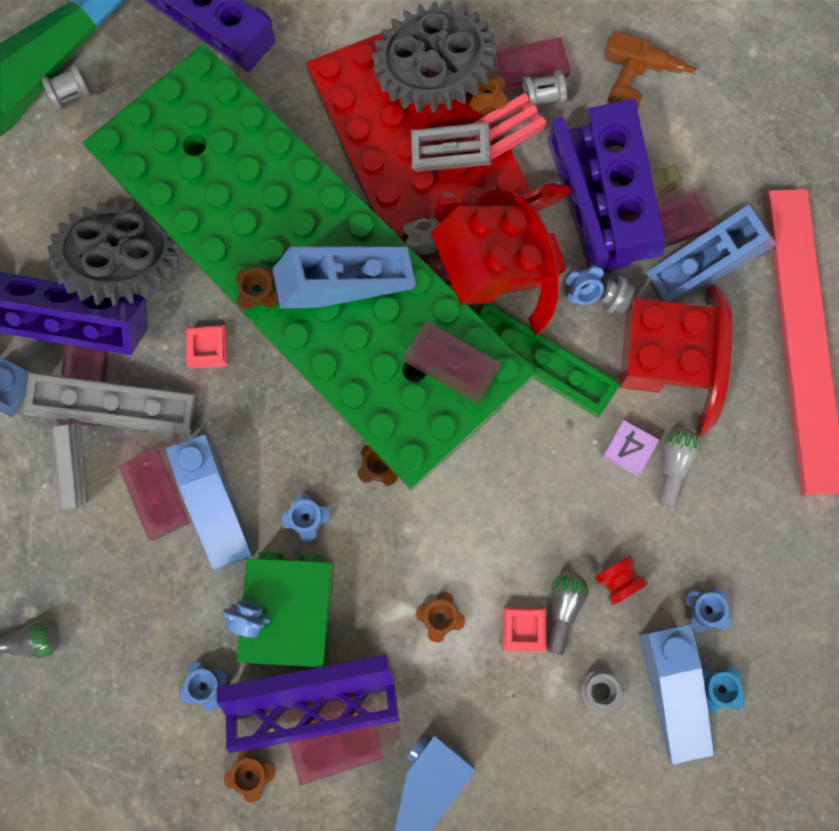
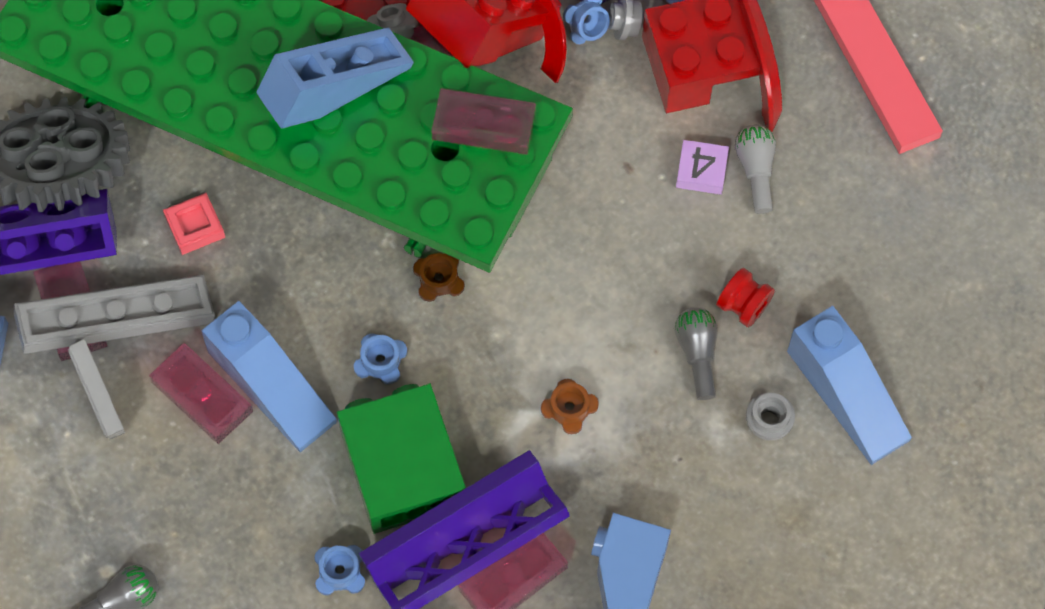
camera: 25 degrees left, 10 degrees down
(245, 619) = (364, 463): medium blue plate -> none
(248, 279) = (240, 108): reddish brown plate -> none
(524, 629) = (663, 387): coral tile -> none
(552, 363) = (603, 115): green tile -> none
(720, 610) = (854, 285): medium blue plate -> none
(733, 693) = (903, 360): dark azure plate -> none

